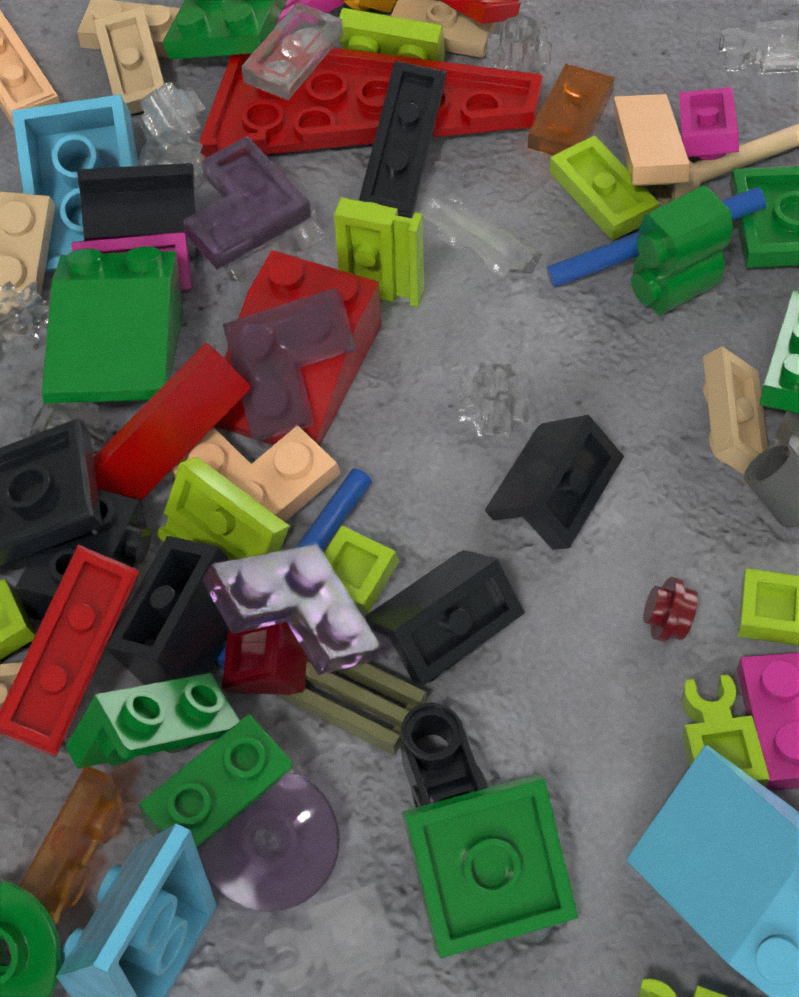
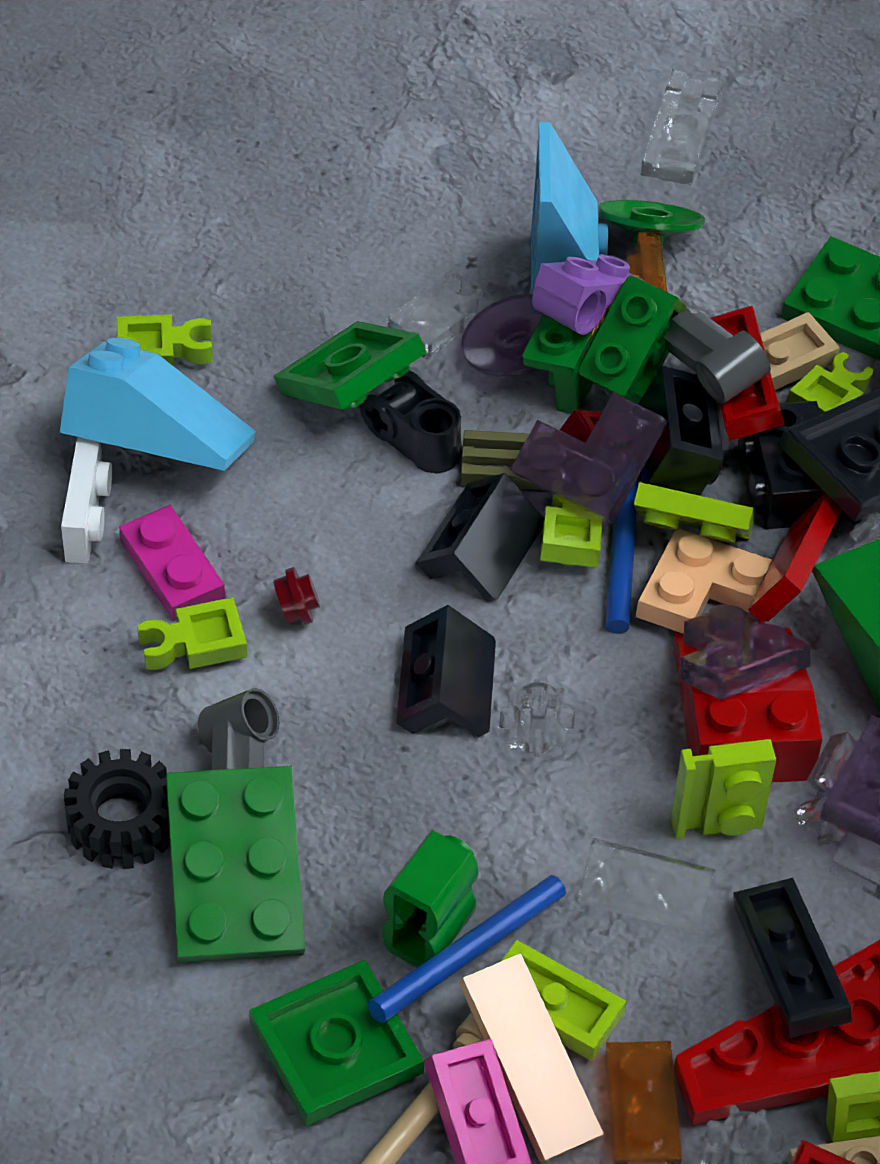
camera: 150 degrees right, 5 degrees down
(92, 624) = (721, 361): none -> dark grey piece
(178, 775) = (579, 290): none -> medium lavender plate
(729, 736) = (216, 514): lime plate -> none
(734, 409) = (321, 797): tan plate -> none

